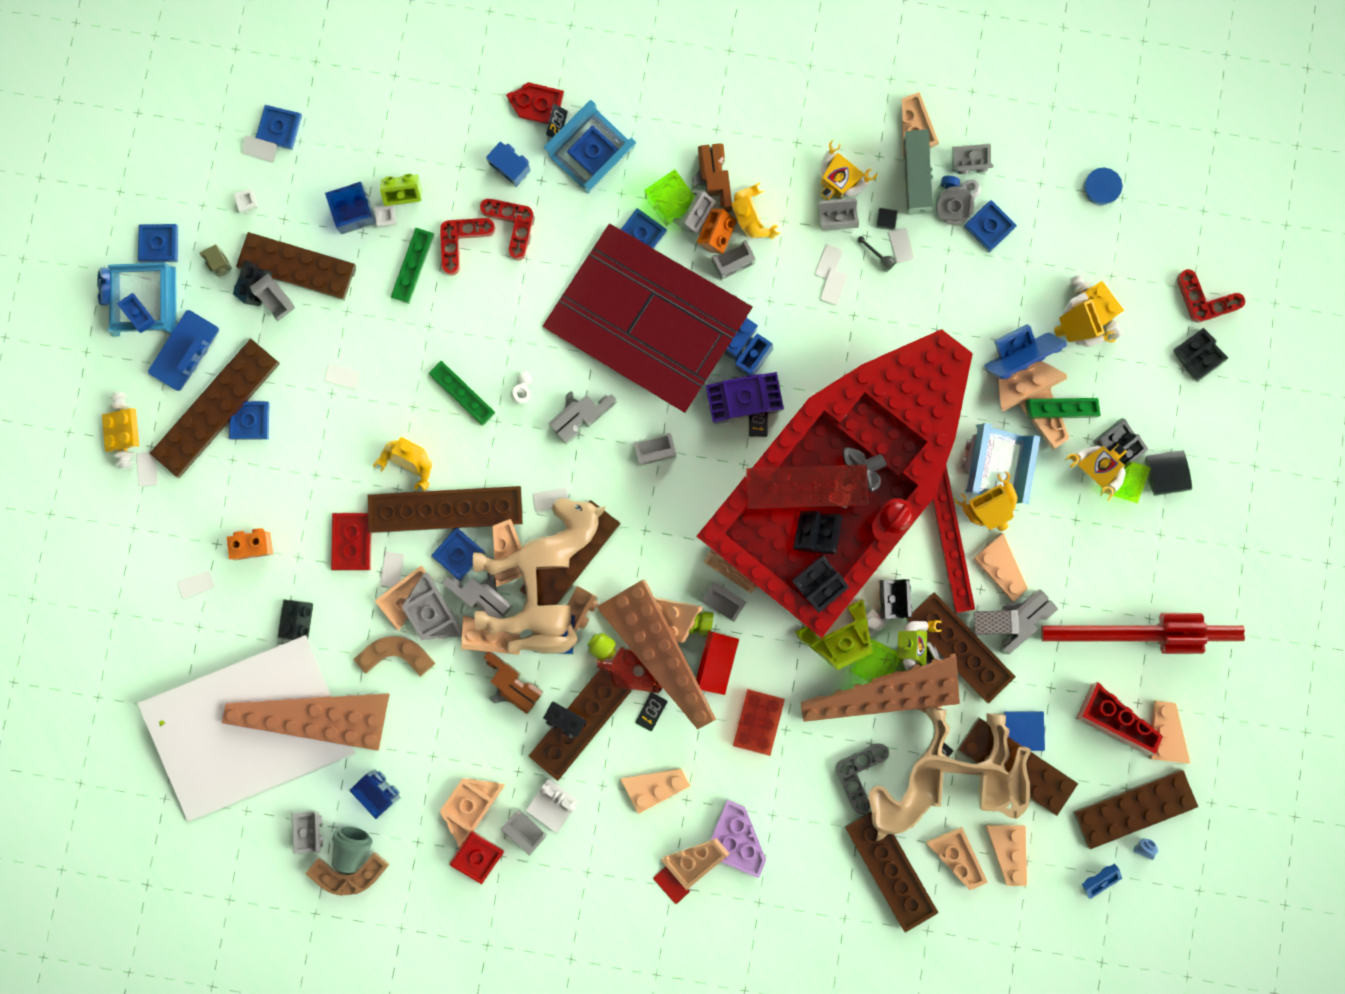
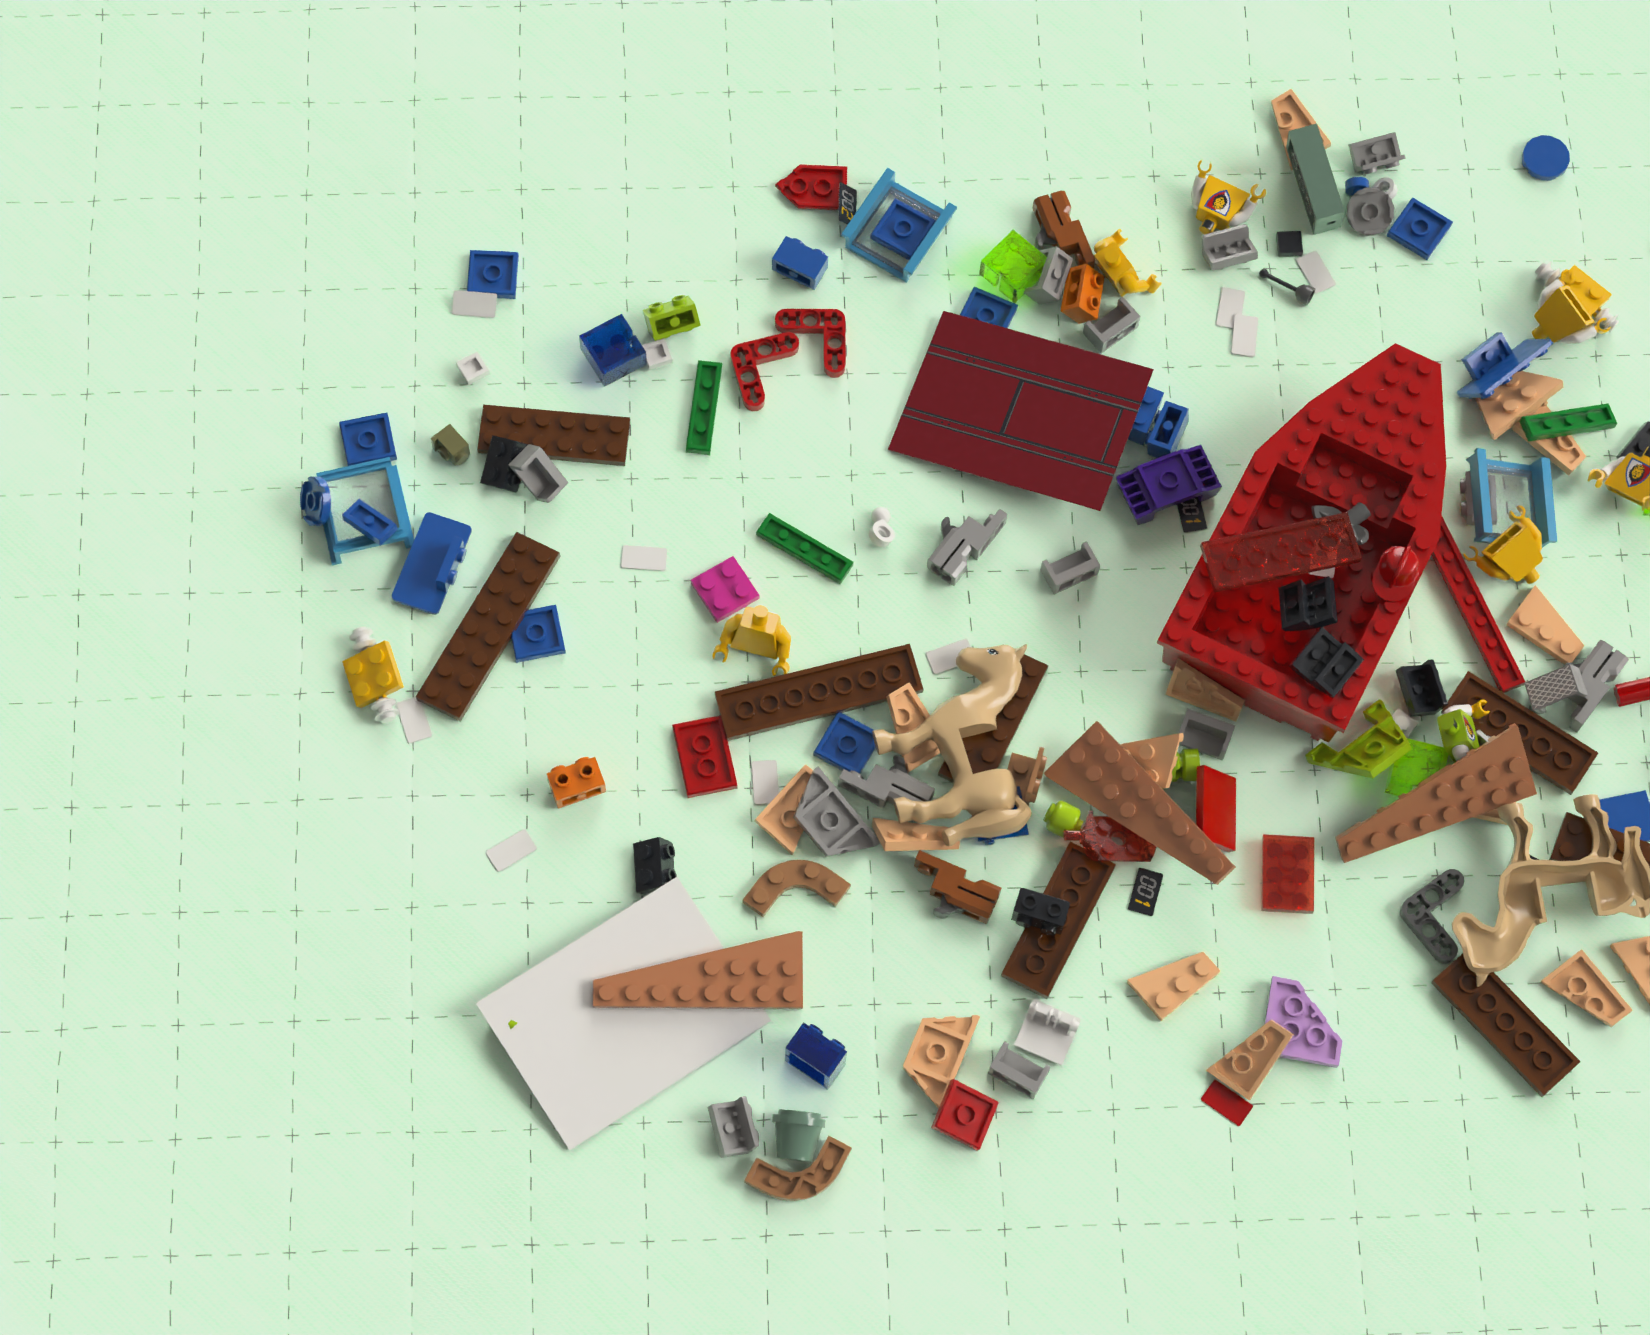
camera: 15 degrees left, 15 degrees down
(395, 413) = (725, 589): none -> dark pink plate

